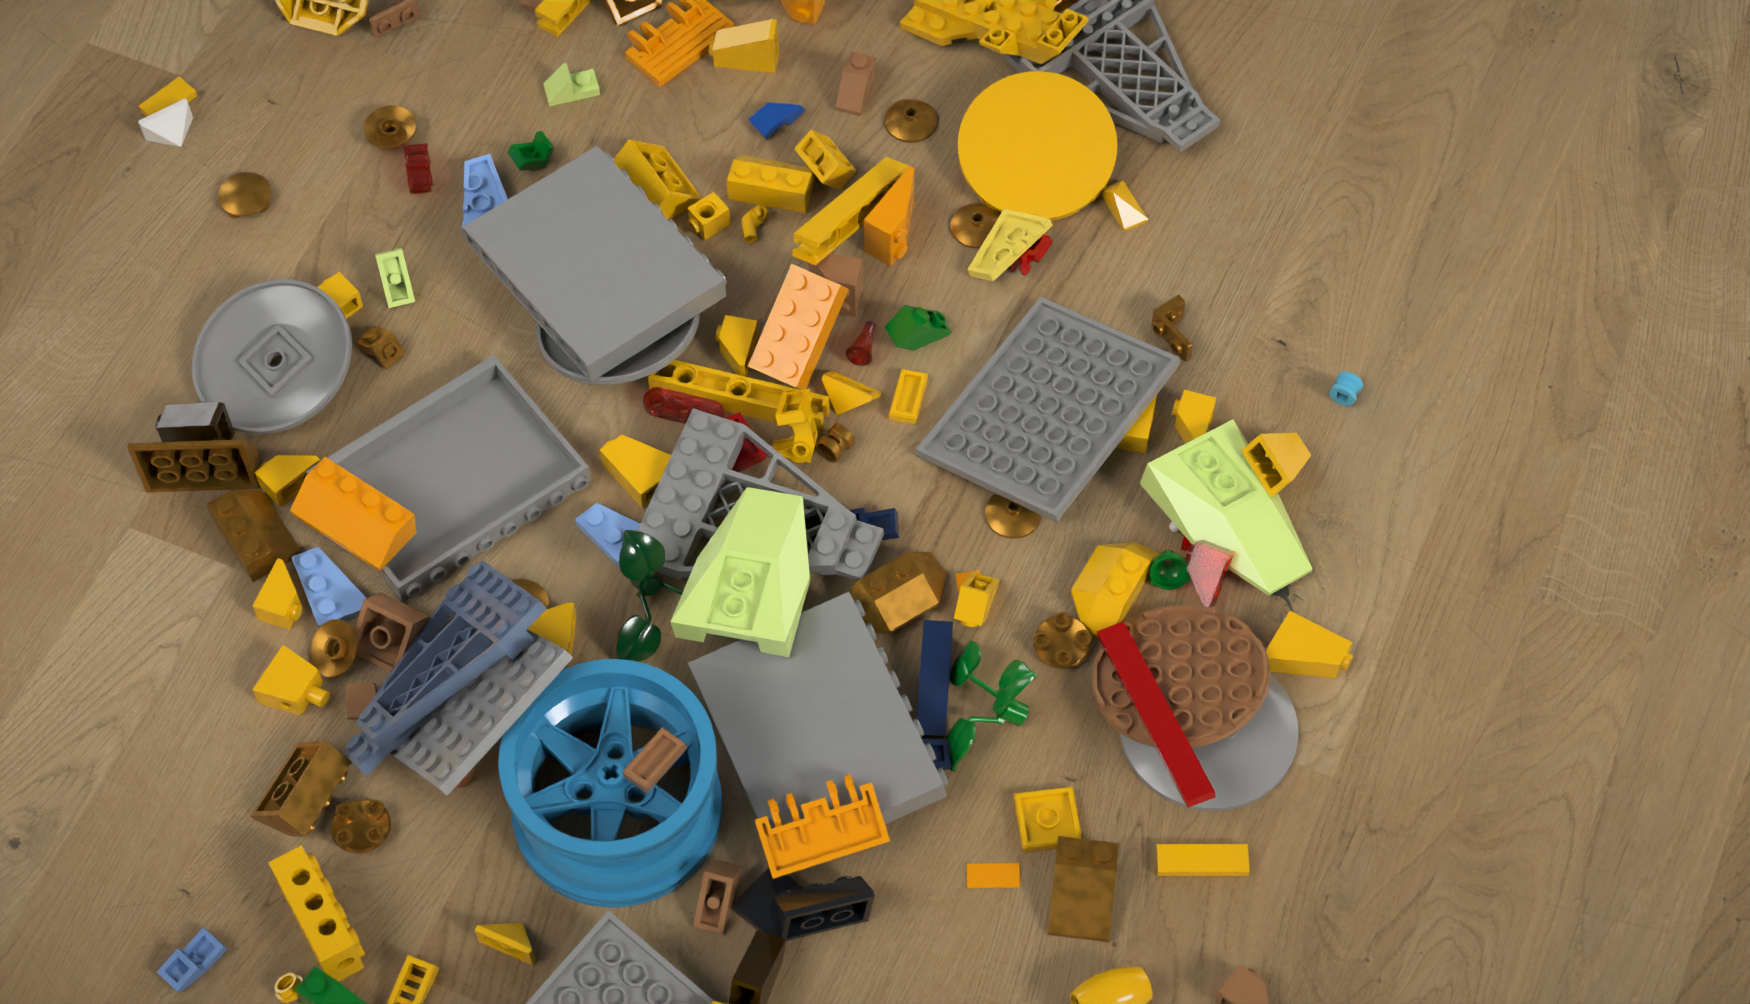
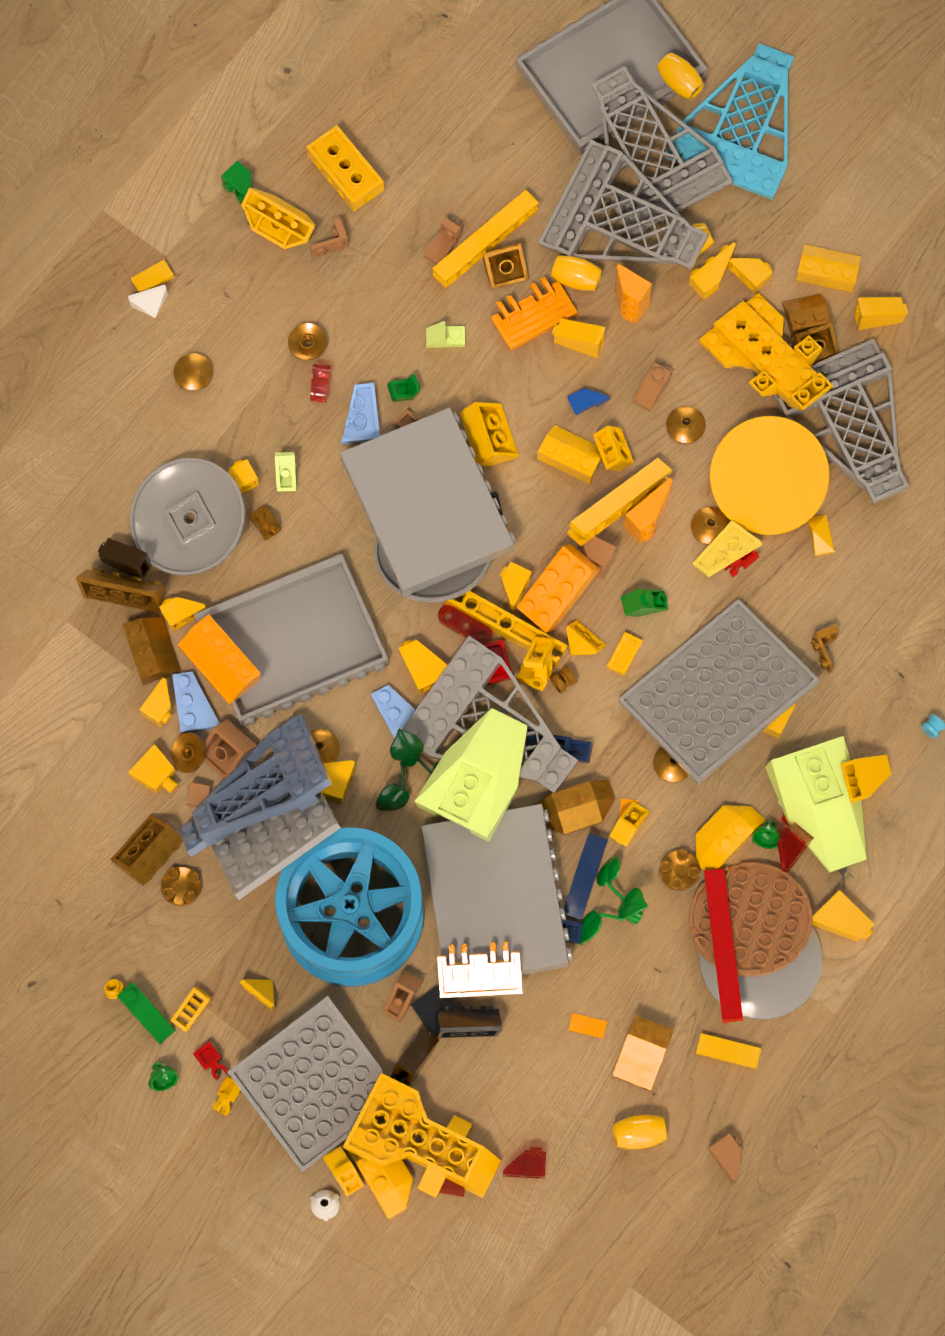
camera: 15 degrees right, 15 degrees up
(191, 963) = (55, 953): medium blue slope -> none
(318, 913) = (130, 915): yellow brick -> none
(654, 760) = (378, 911): medium nougat tile -> none
(708, 216) = (522, 466): yellow brick -> none
(751, 221) = (548, 484): yellow arm -> none
(861, 349) = (601, 607): clear red cone -> none
(1045, 816) = (634, 995): yellow tile -> none
(1193, 414) = (819, 722): yellow slope -> none

